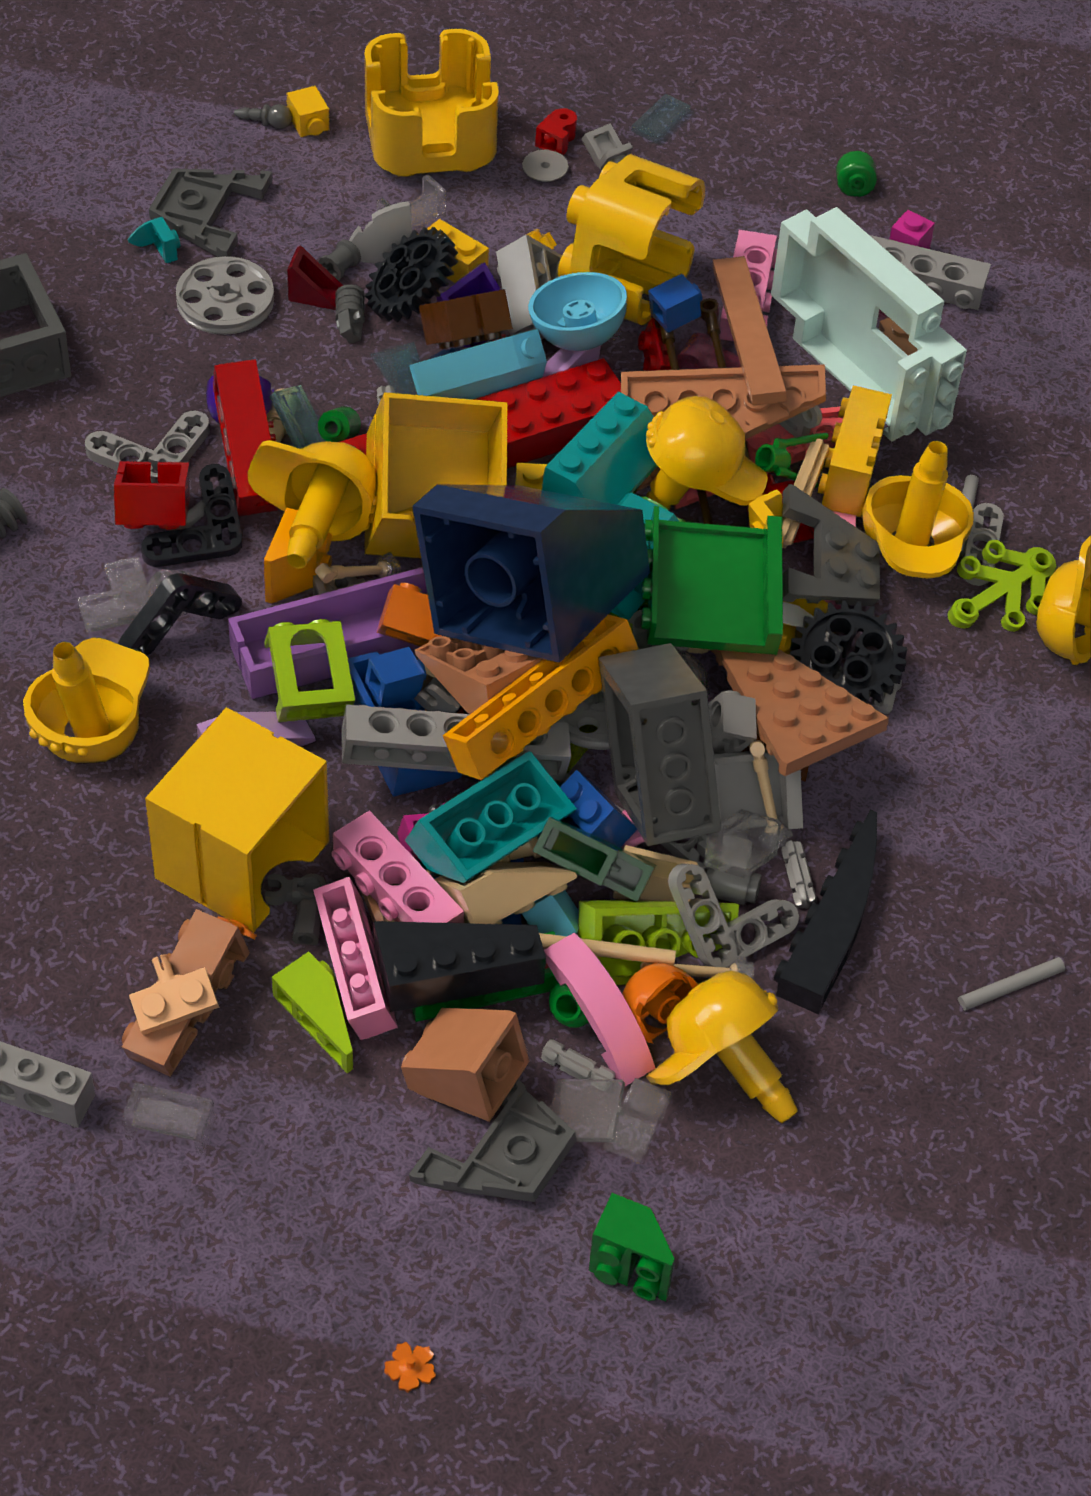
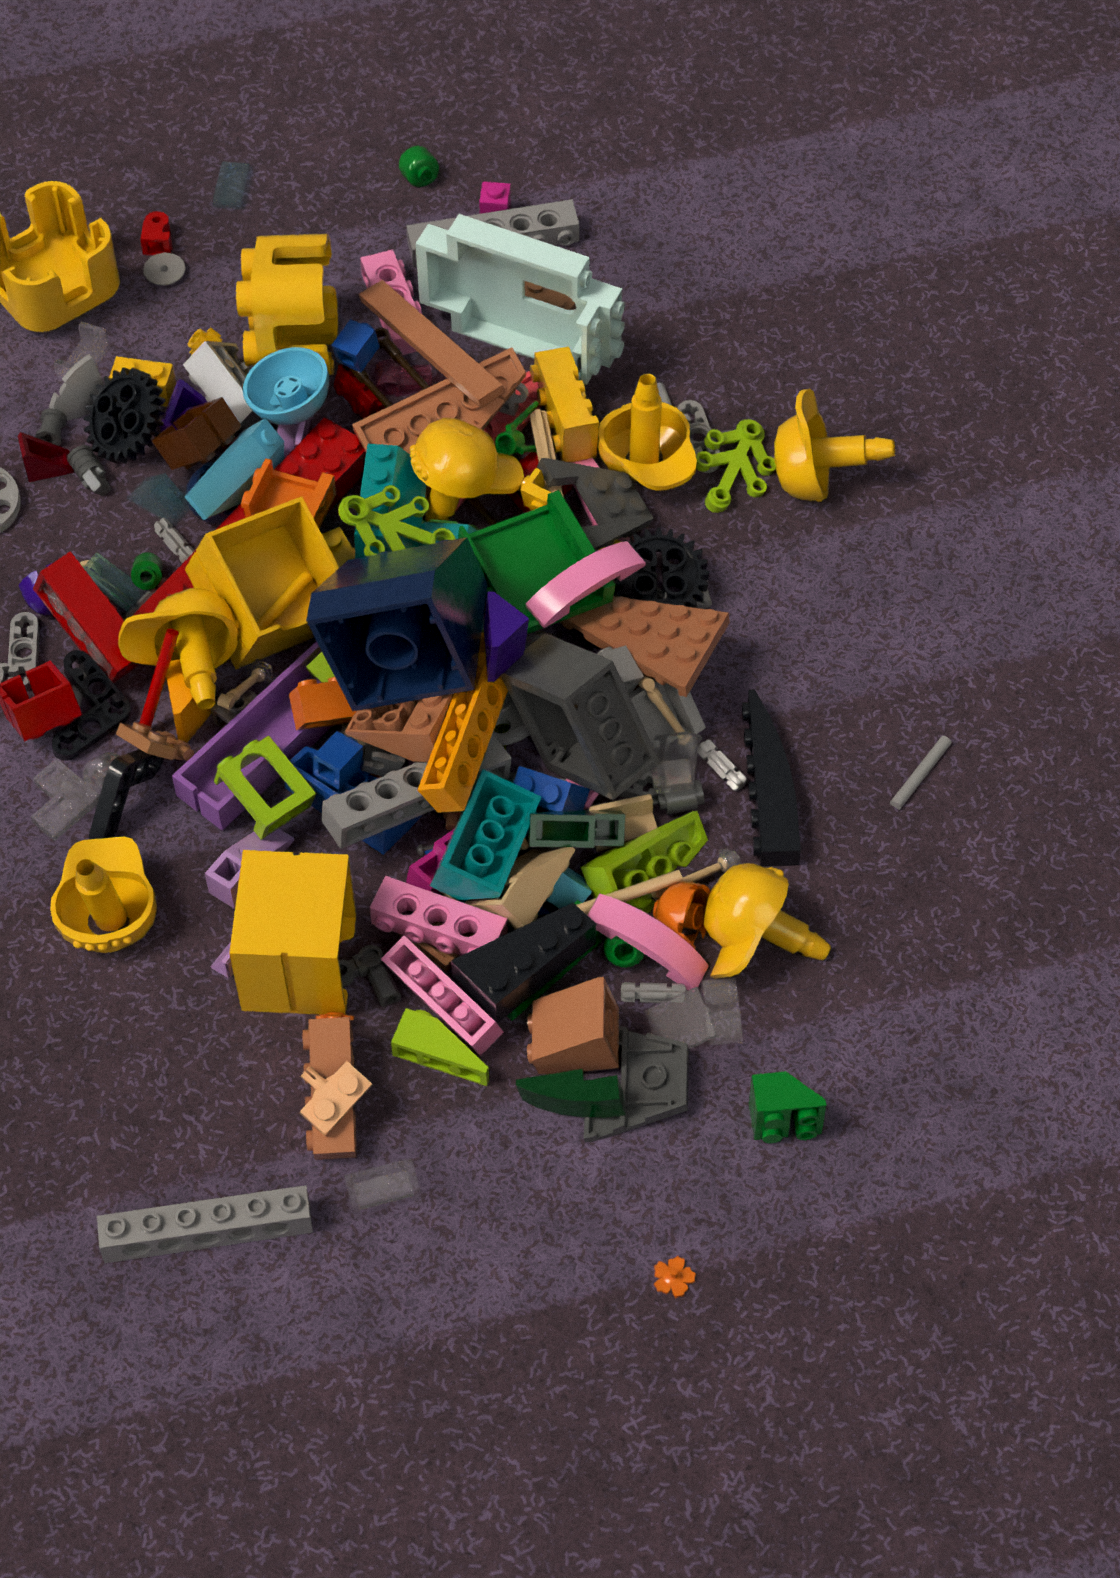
camera: 25 degrees left, 5 degrees up
(228, 578) = (155, 743): none -> medium nougat plate
(268, 525) = (159, 677): none -> red bar
(425, 1124) = (573, 1094): none -> dark green slope
(528, 419) = (275, 488): none -> orange panel
(585, 472) = (388, 523): none -> lime plant
(605, 146) = (205, 231): light grey bracket -> none
(615, 620) = (504, 635): none -> dark purple slope
(727, 933) = (695, 836): light grey beam -> none
(753, 612) = (582, 579): none -> bright pink slope

